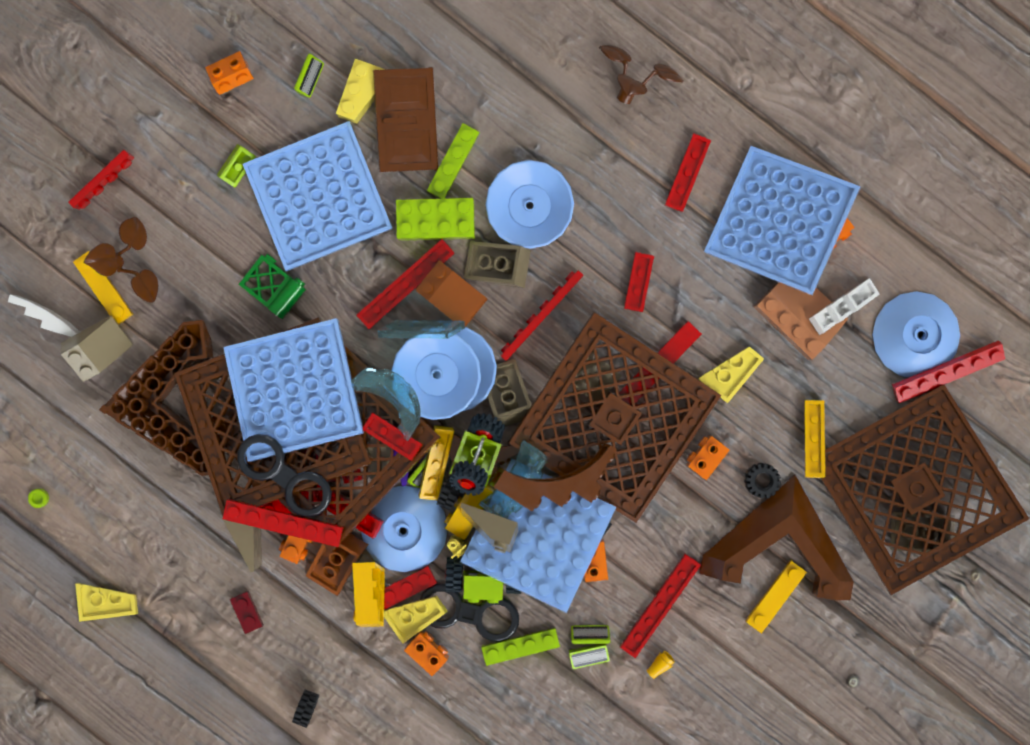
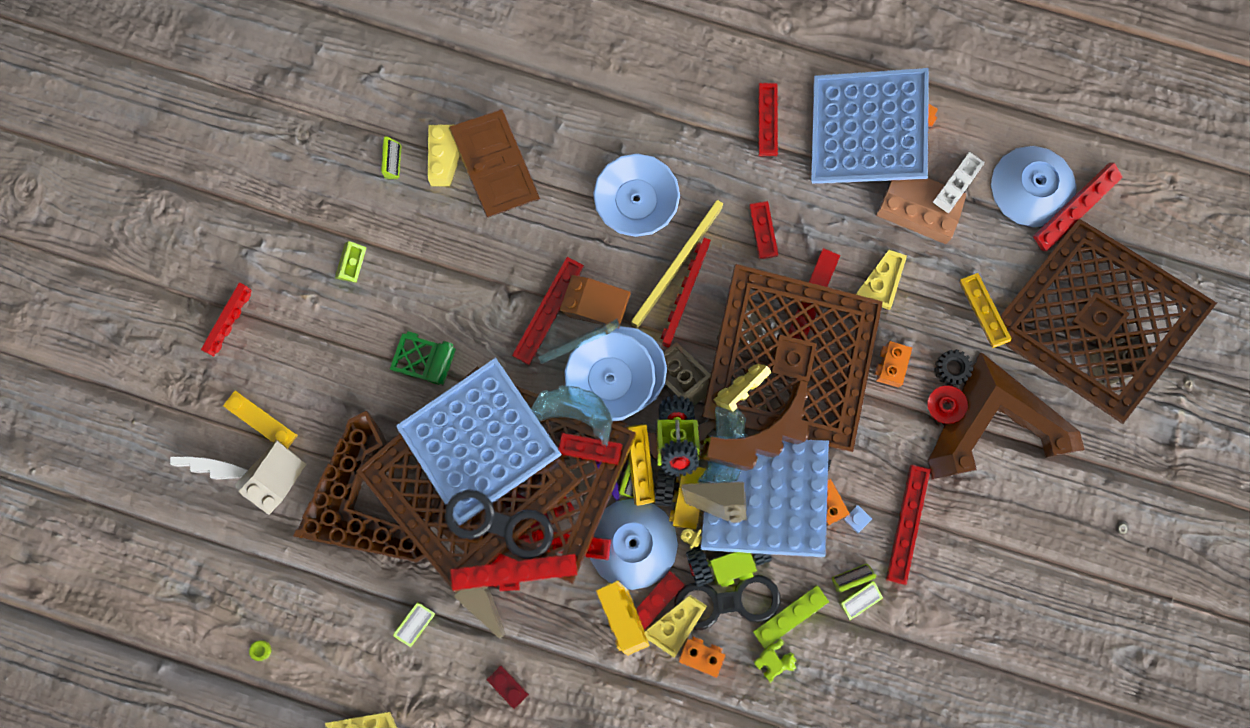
camera: 20 degrees left, 10 degrees down
(107, 261) = (252, 383): reddish brown plant -> none
(182, 527) = (414, 624): none -> slope
(229, 73) = (316, 180): orange brick -> none
(294, 549) = (533, 597): orange brick -> none
(317, 196) = (437, 261): light blue plate -> none
(334, 568) = (578, 602): dark orange slope -> none
(435, 219) = (554, 241): lime brick -> none
(453, 161) = (551, 186): lime plate -> none
(487, 678) = (774, 664): none -> lime animal
(497, 264) = (627, 260): dark tan slope -> none
(544, 284) = (677, 264): none -> light yellow tile
(546, 434) = (730, 396): none -> light yellow wing
(616, 583) = (857, 519): none -> light blue plate
(632, 87) = (686, 66): reddish brown plant -> none
(660, 664) = (933, 581): yellow cone -> none
(741, 502) = (951, 396): none -> red dish
(775, 596) = (1013, 473): yellow plate -> none

